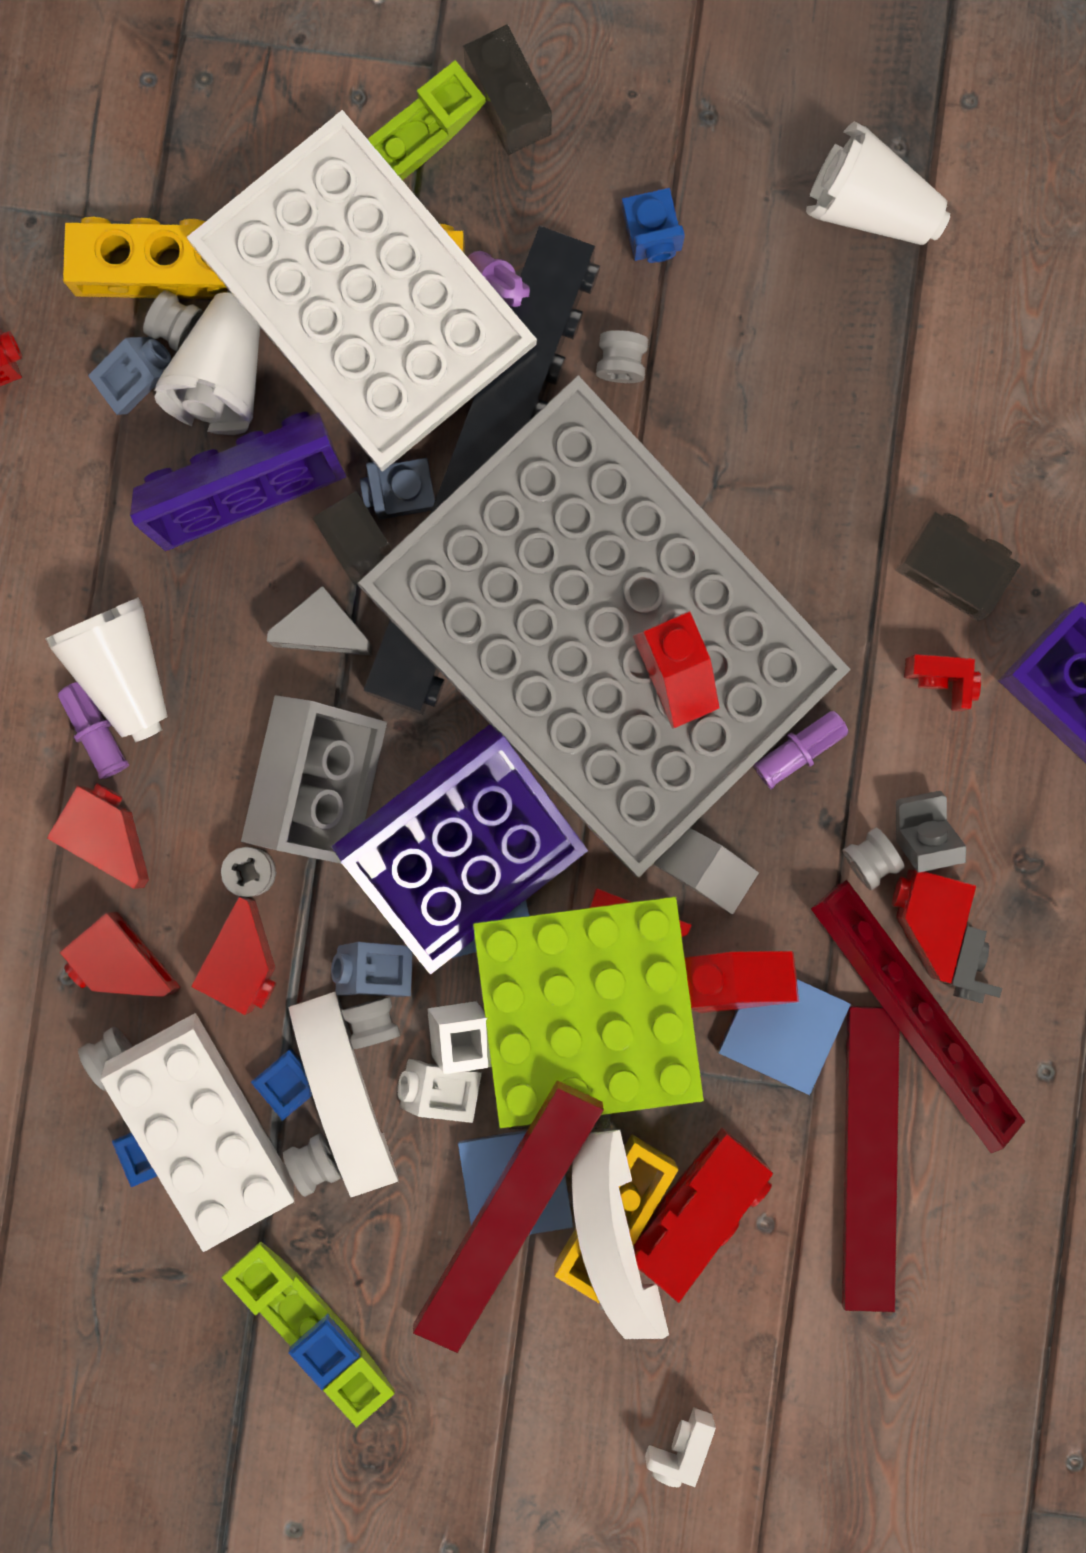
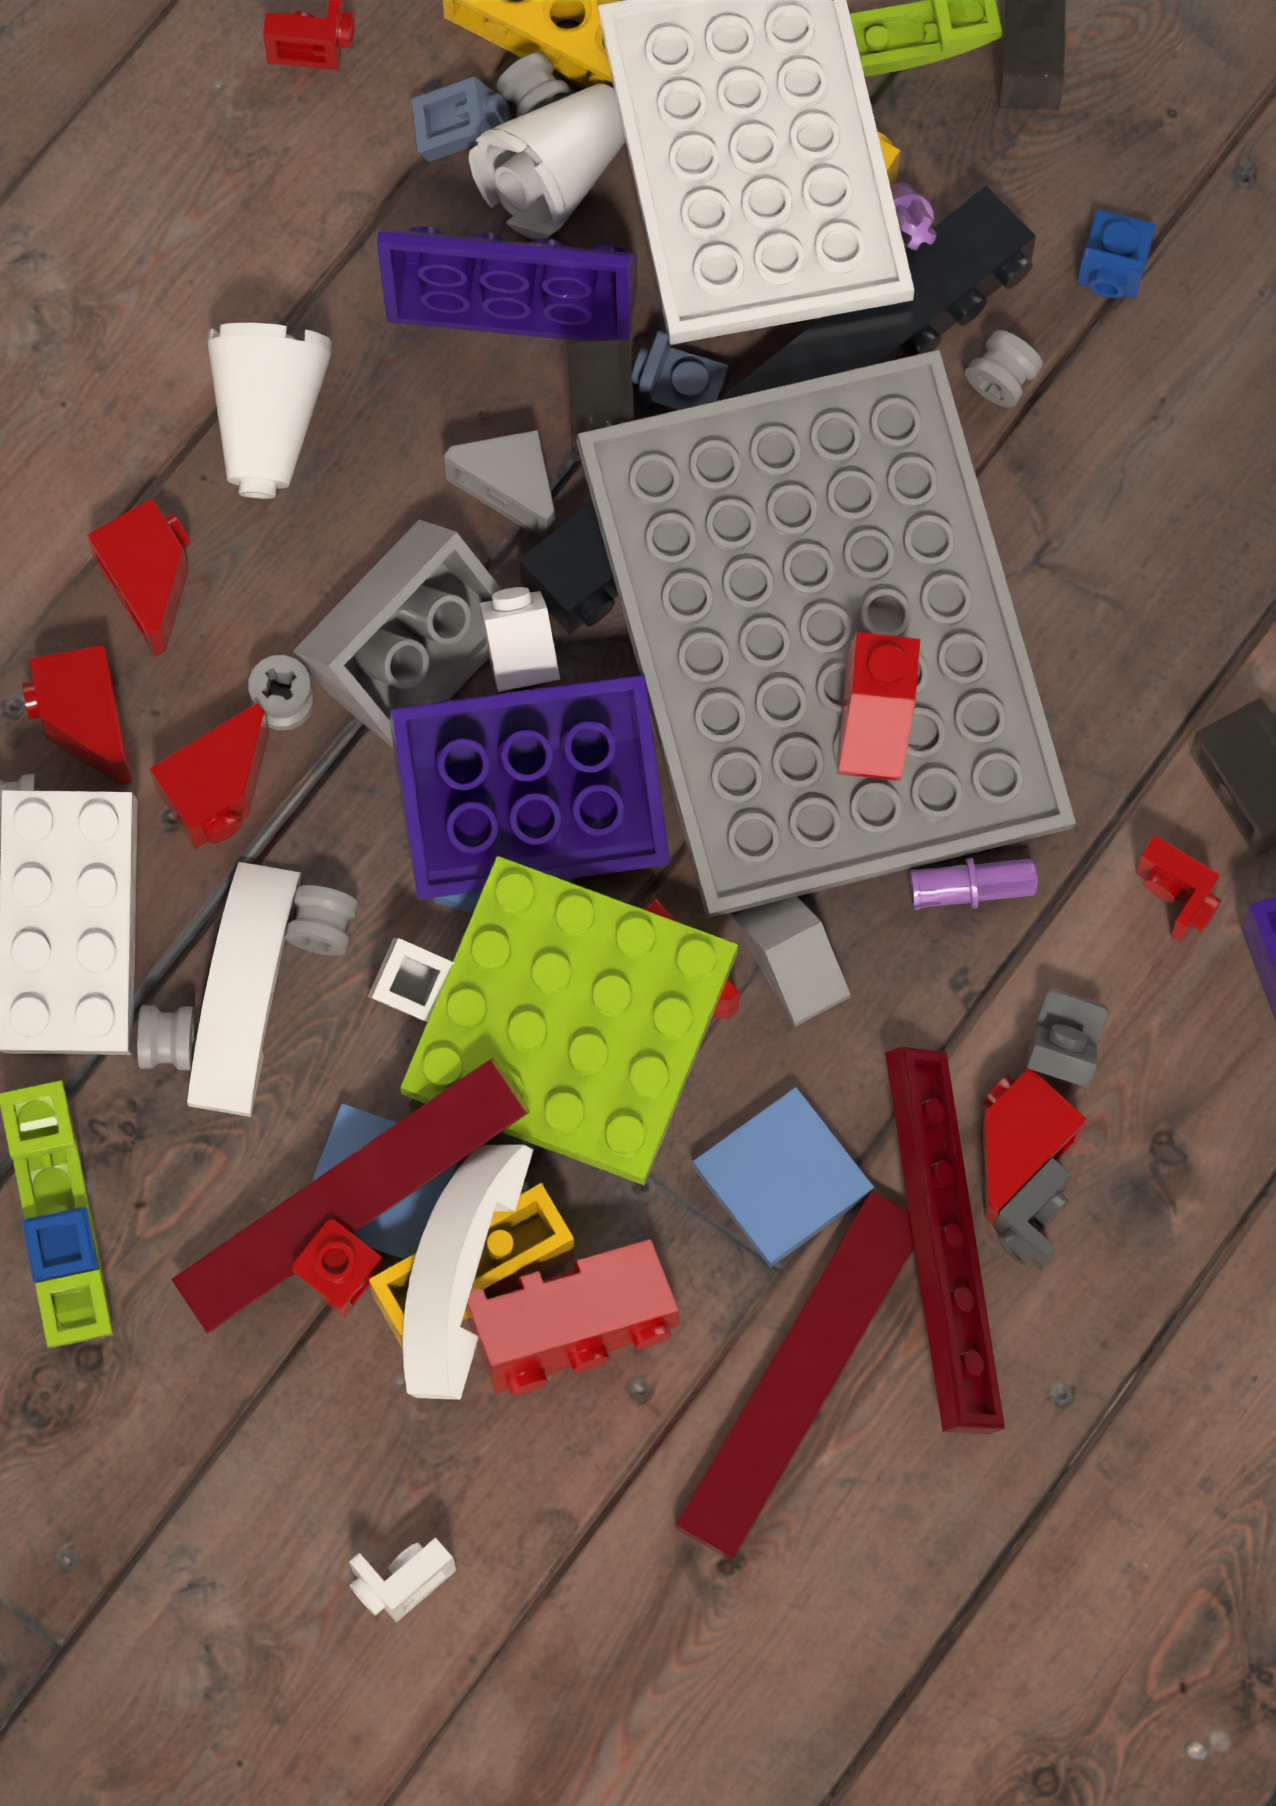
camera: 30 degrees right, 15 degrees down
(92, 731) = (199, 461): medium lavender axle -> none
(284, 1084) = (185, 942): blue tile -> none
(372, 969) = (358, 864): sand blue bracket -> none
(395, 747) = (519, 638): none -> white brick
(437, 1095) = (355, 1034): white bracket -> none
(525, 1269) = (338, 1266): none -> red bracket
(741, 980) = (759, 1084): red slope -> none
(873, 858) = (988, 1040): light grey wheel -> none

